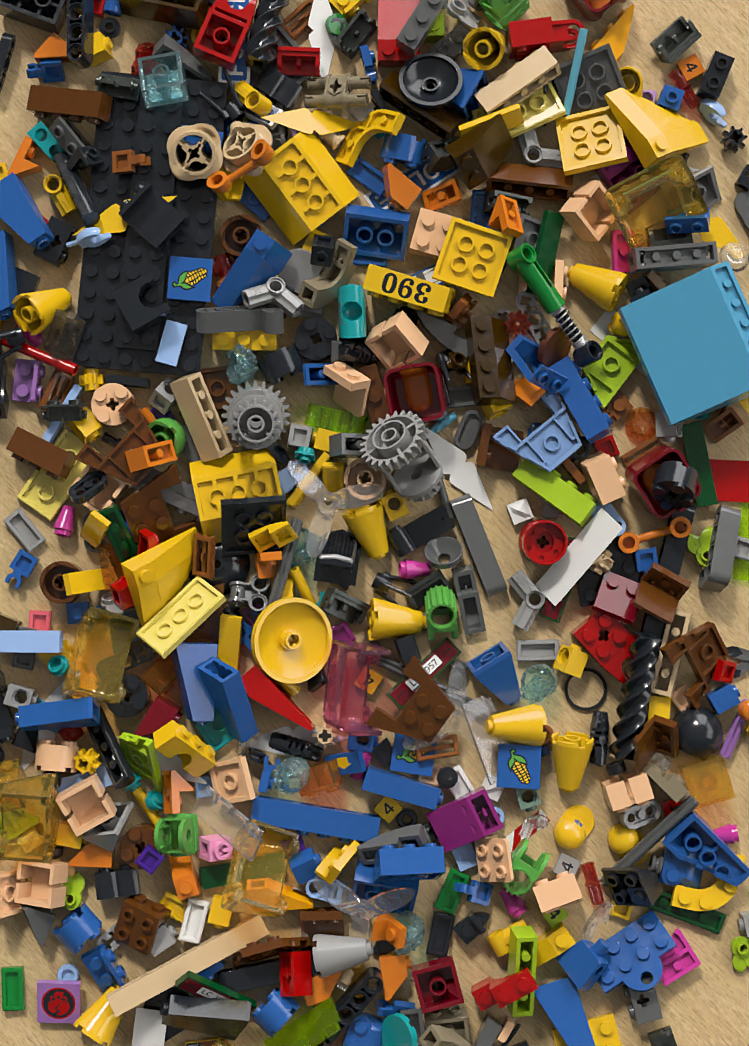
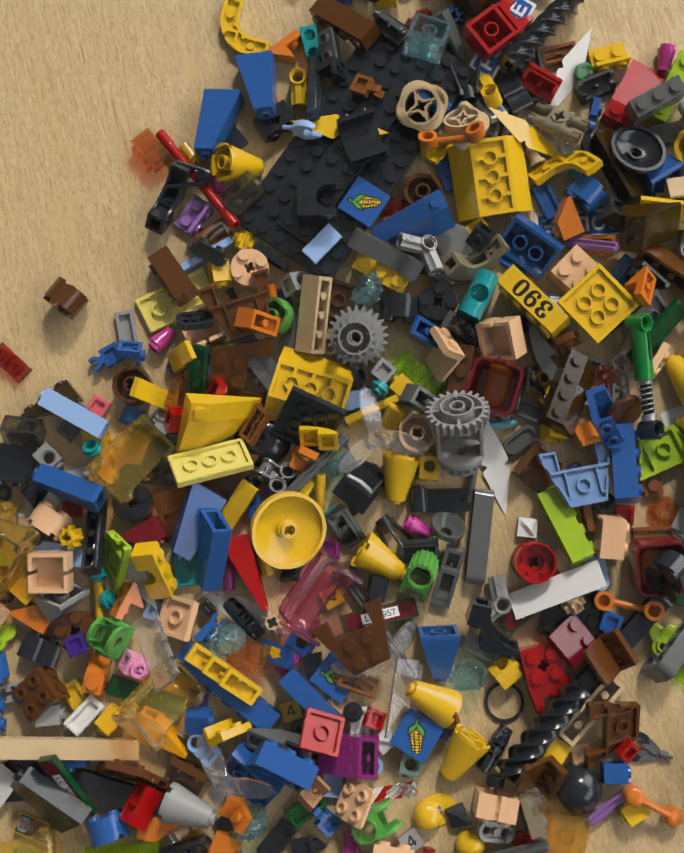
camera: 35 degrees right, 5 degrees down
(42, 548) = (130, 350): none -> blue bracket
(260, 715) = (229, 577): none -> dark pink cone
(305, 809) = (223, 673): none -> yellow slope
(428, 813) = (321, 733): none -> tile
(437, 199) = (593, 244): none -> medium lavender axle
(453, 869) = (310, 798): none -> medium nougat bracket
(471, 773) = (374, 719): none -> red tile
(540, 637) = (489, 639): none -> black arch
(597, 819) = (457, 816): none -> black slope

